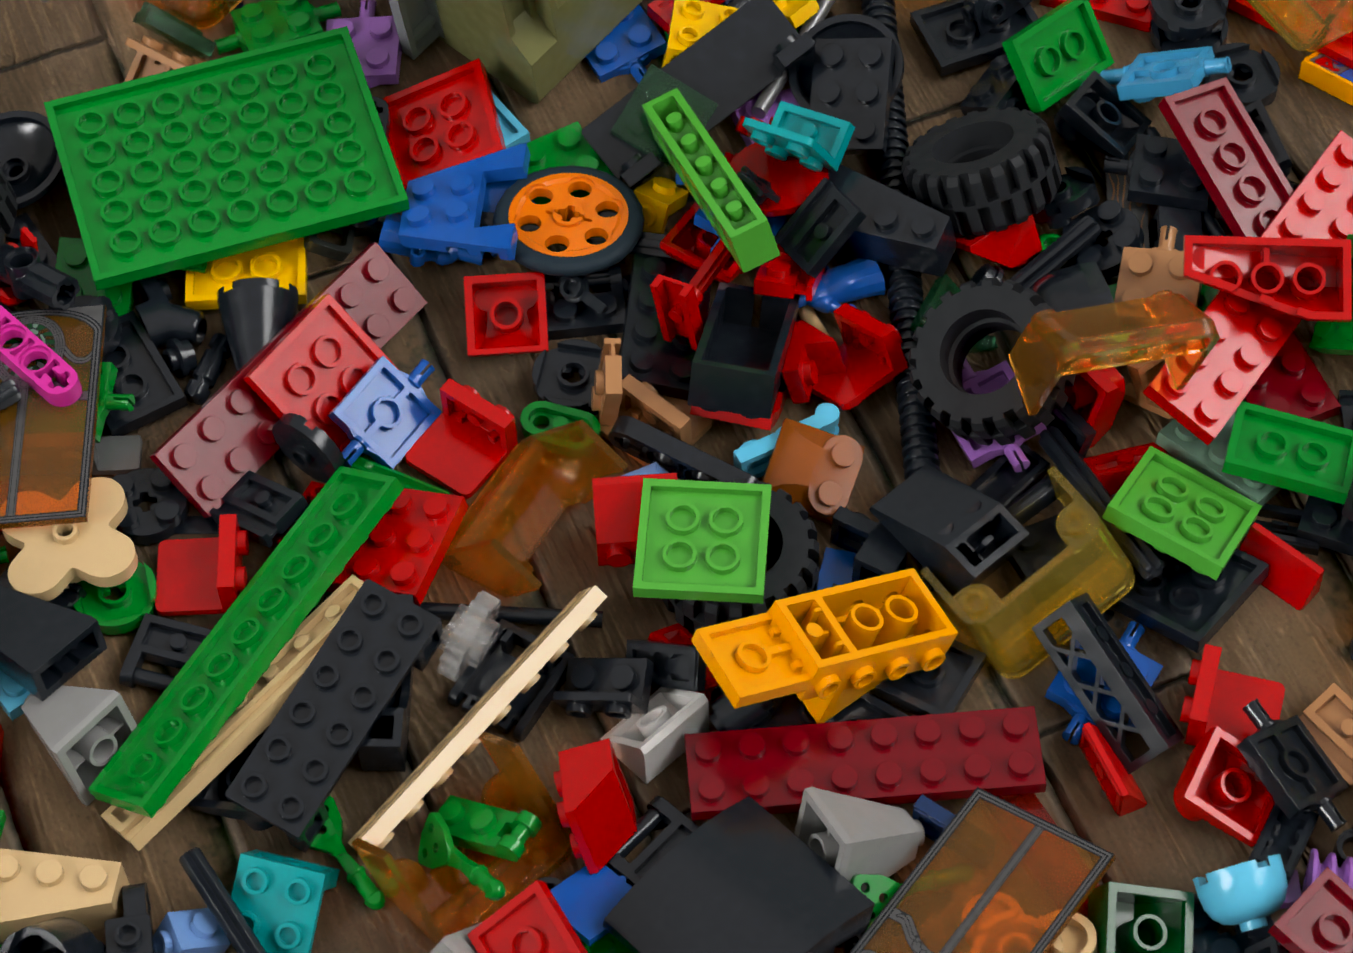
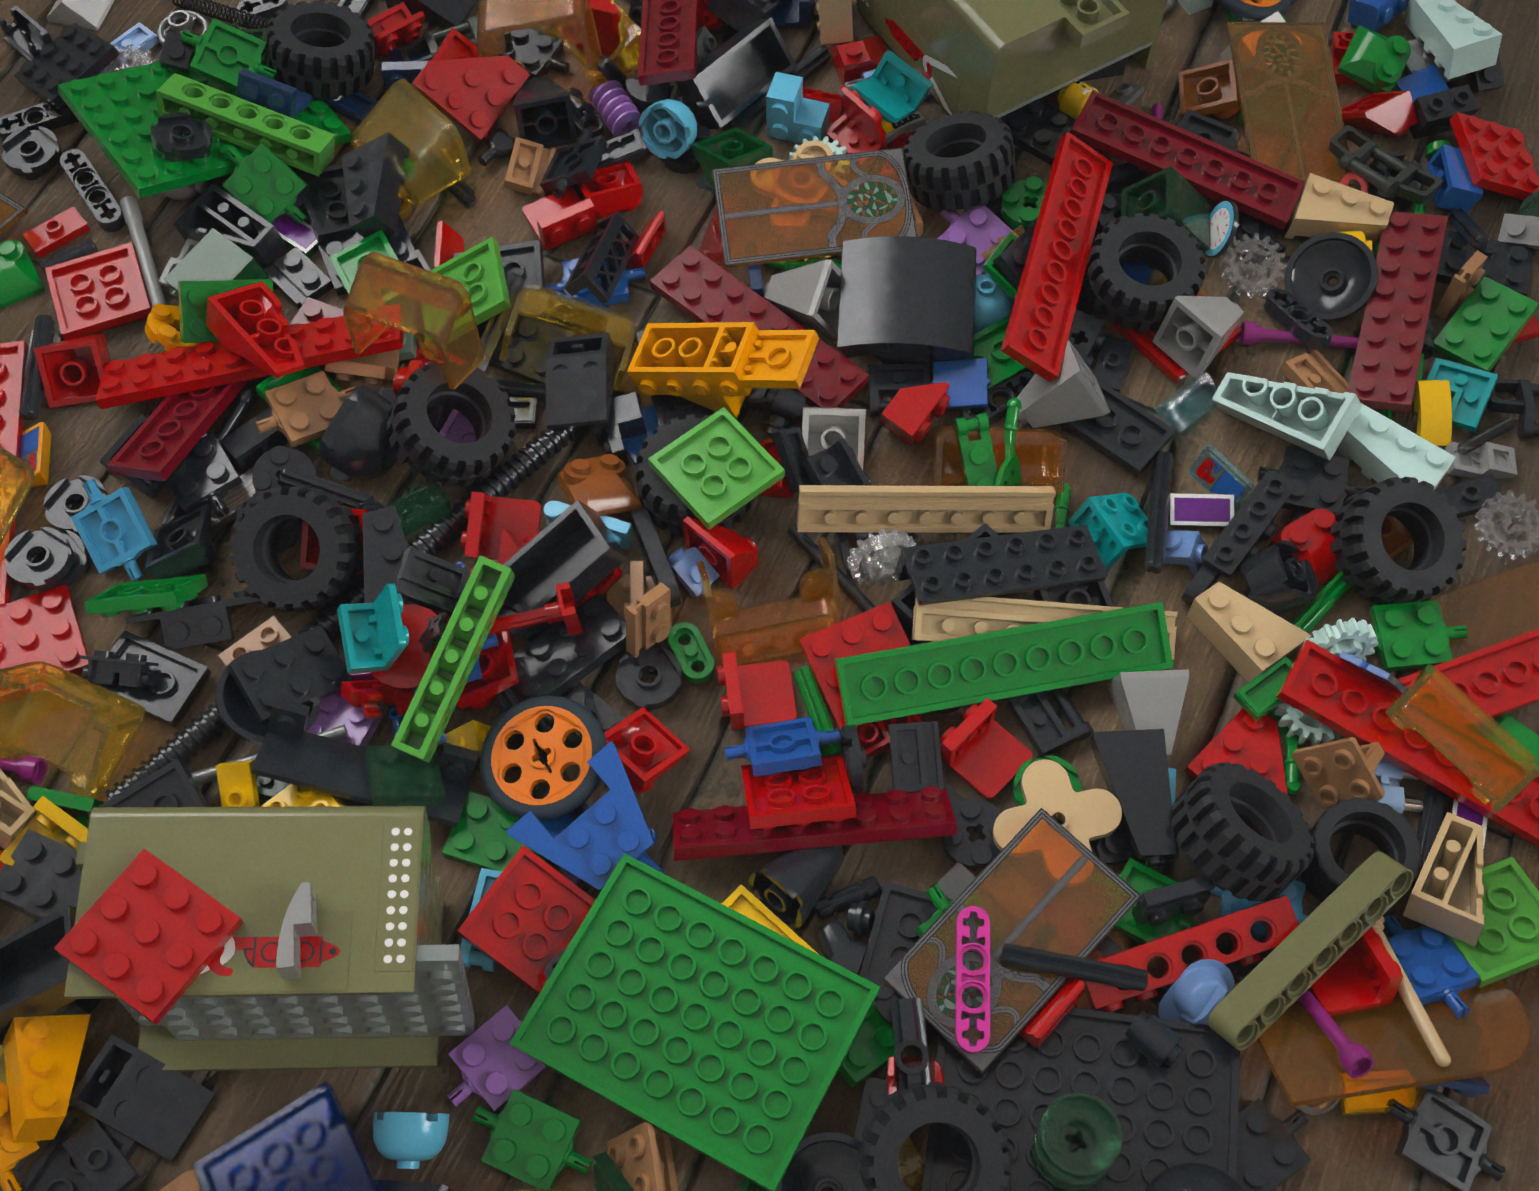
camera: 135 degrees left, 5 degrees up
(917, 100) = (263, 636): none -> medium nougat bracket

